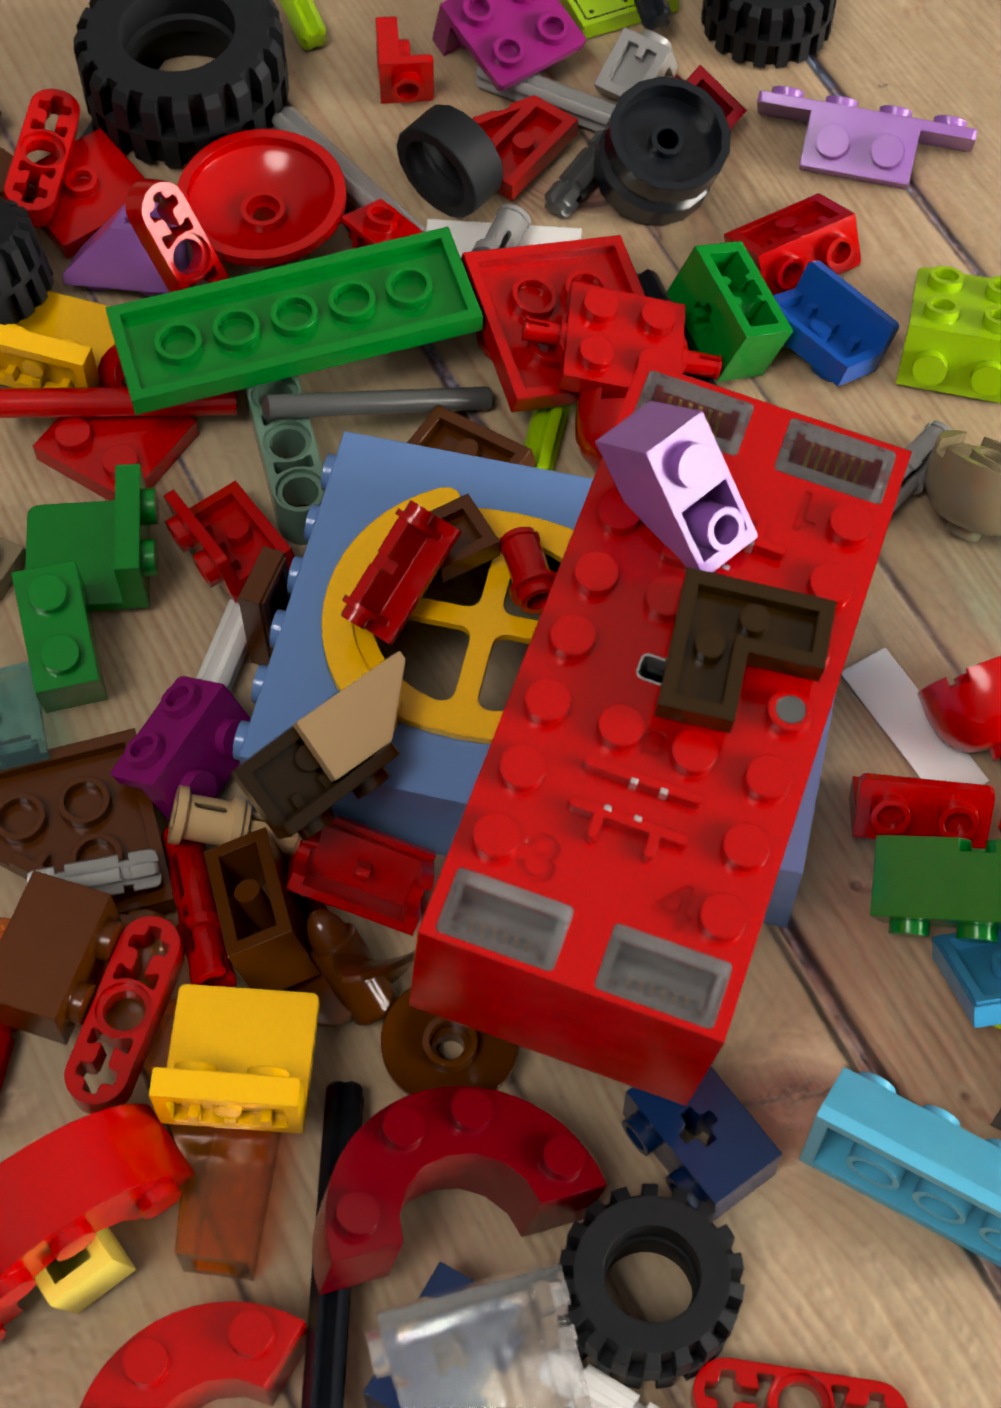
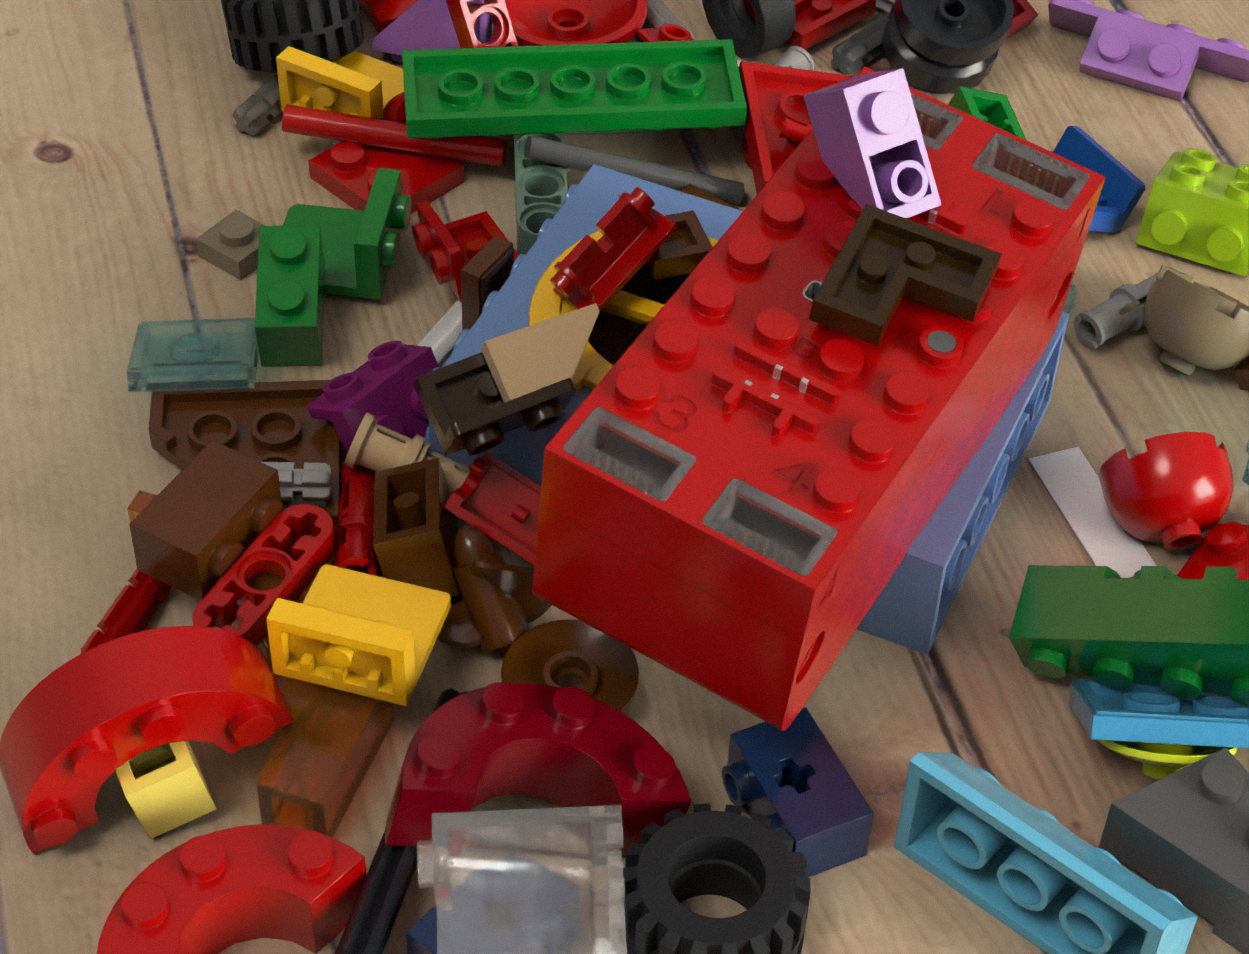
camera: 10 degrees right, 15 degrees down
(797, 235) = (1091, 108): red bracket -> none
(920, 808) = (1064, 543): red bracket -> none

